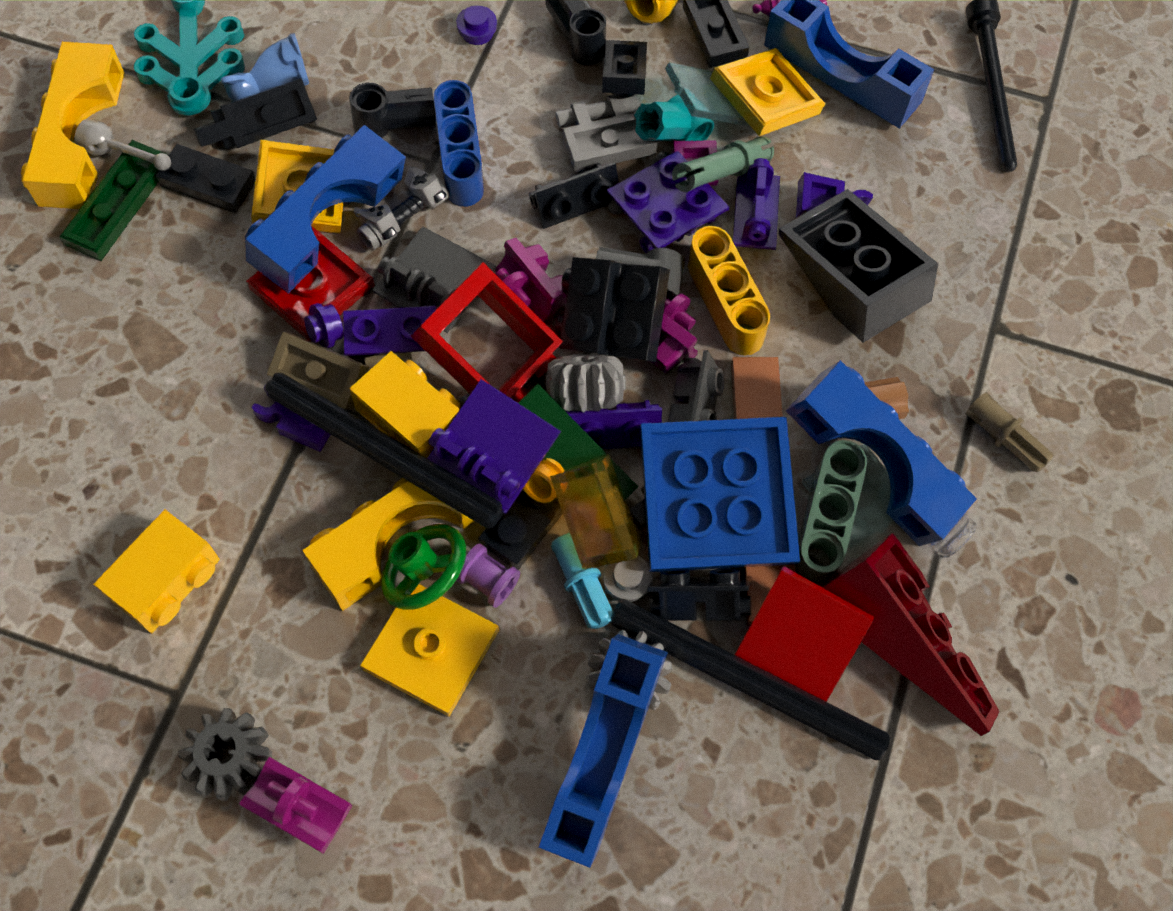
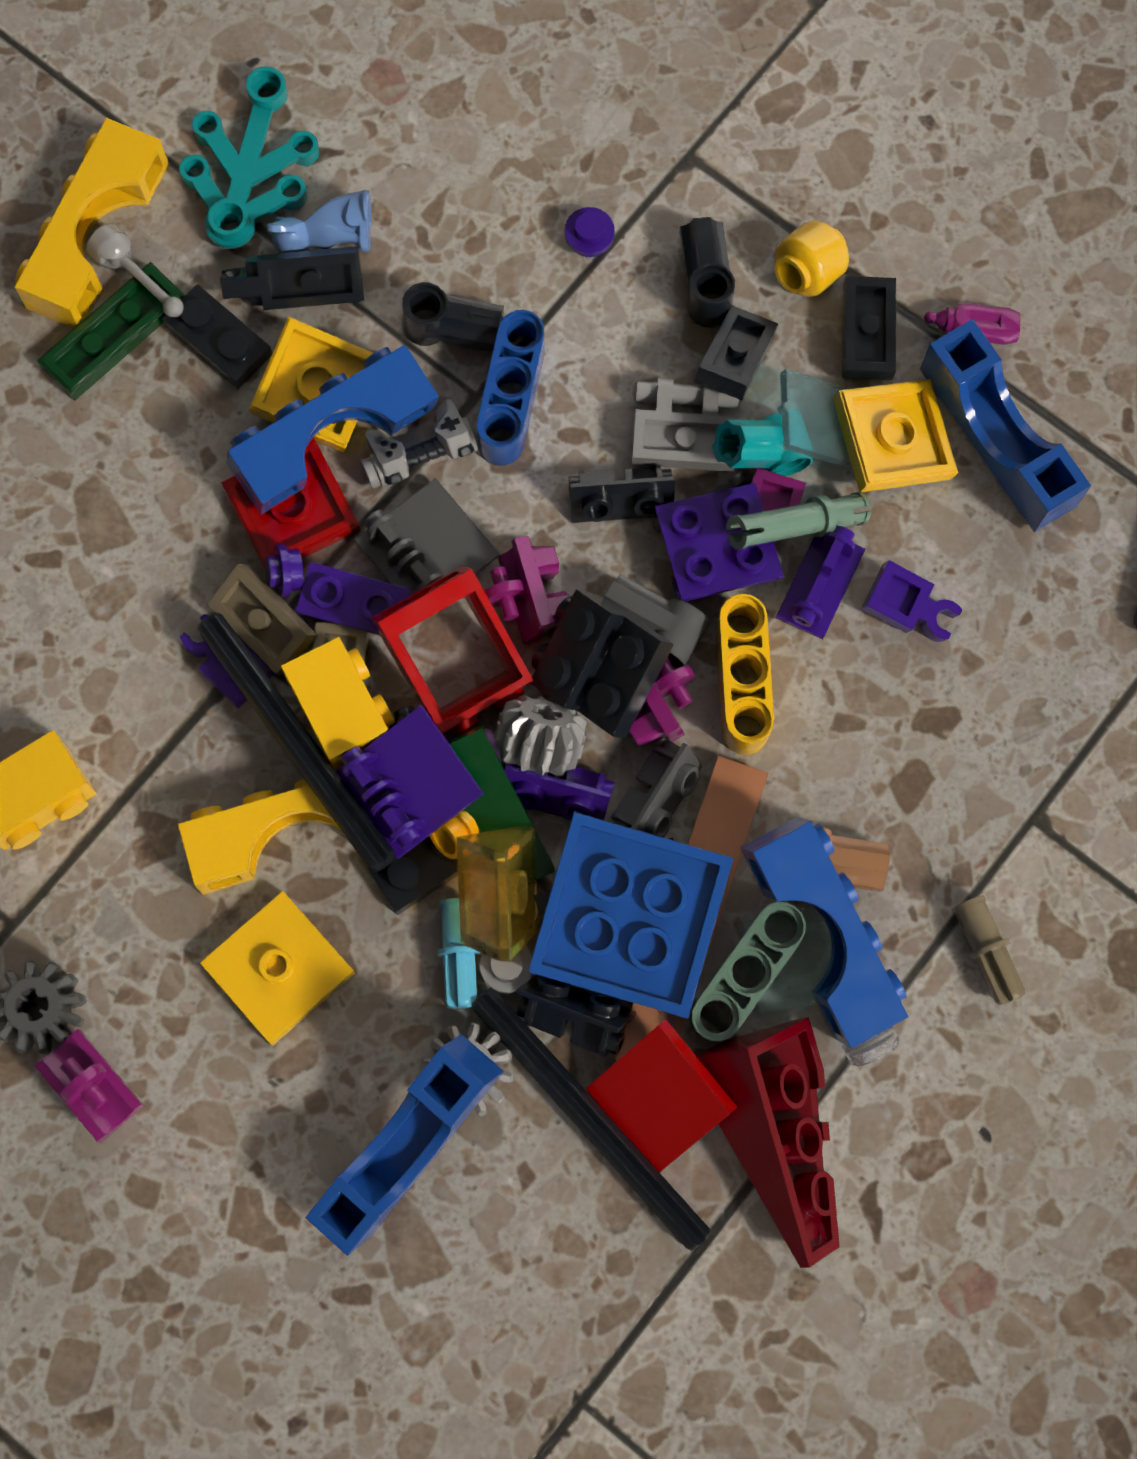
camera: 20 degrees right, 10 degrees up
(417, 562) = (290, 875): green piece -> none
(488, 575) = (361, 913): medium lavender bush -> none
(860, 264) = (903, 694): black slope -> none

